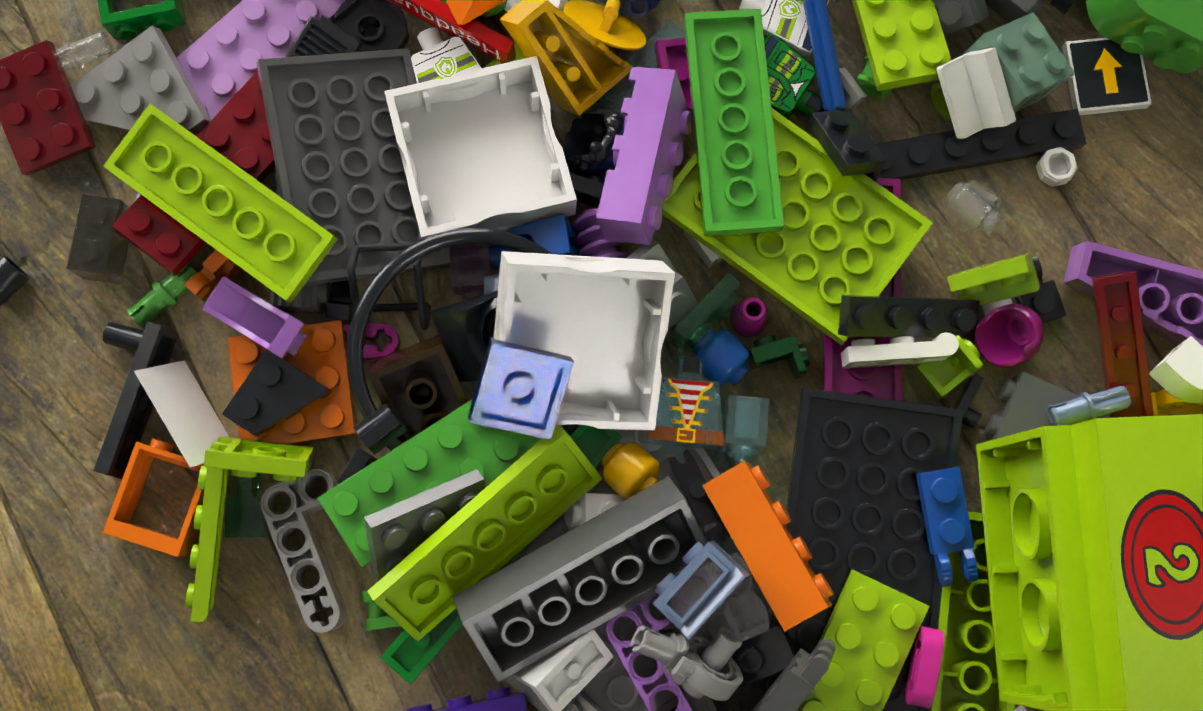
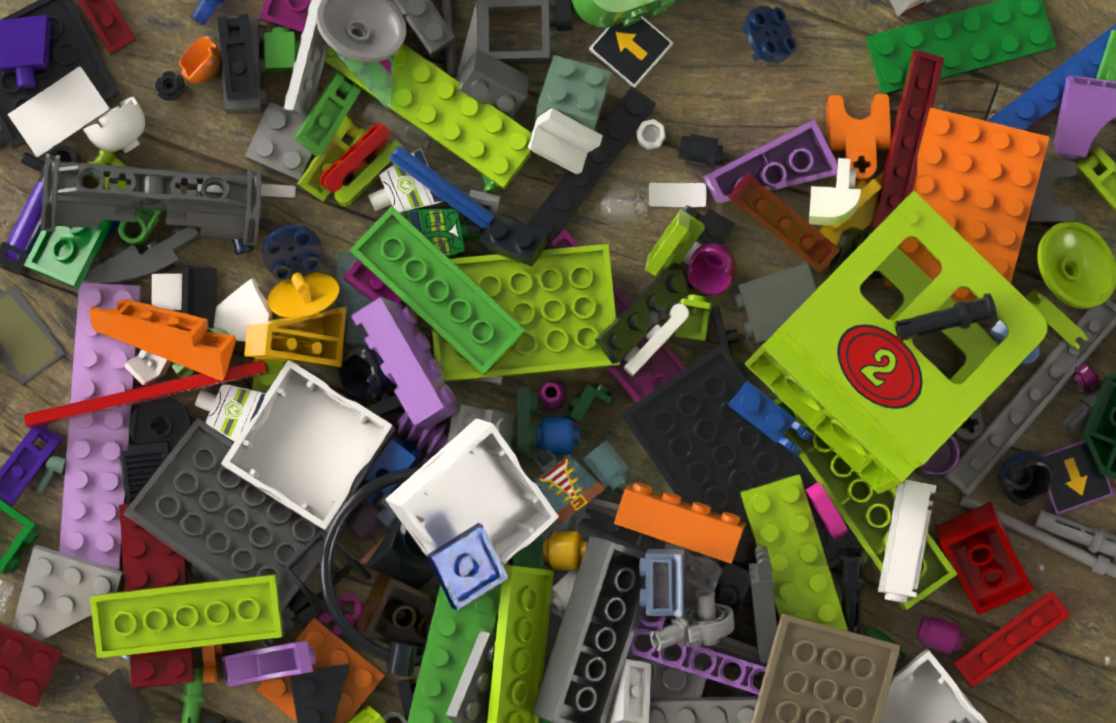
camera: 40 degrees left, 5 degrees up
(1027, 239) = (677, 194): none -> white sticker
(1088, 406) = (791, 275): axle -> none
(1092, 219) = (700, 150): none -> black brick

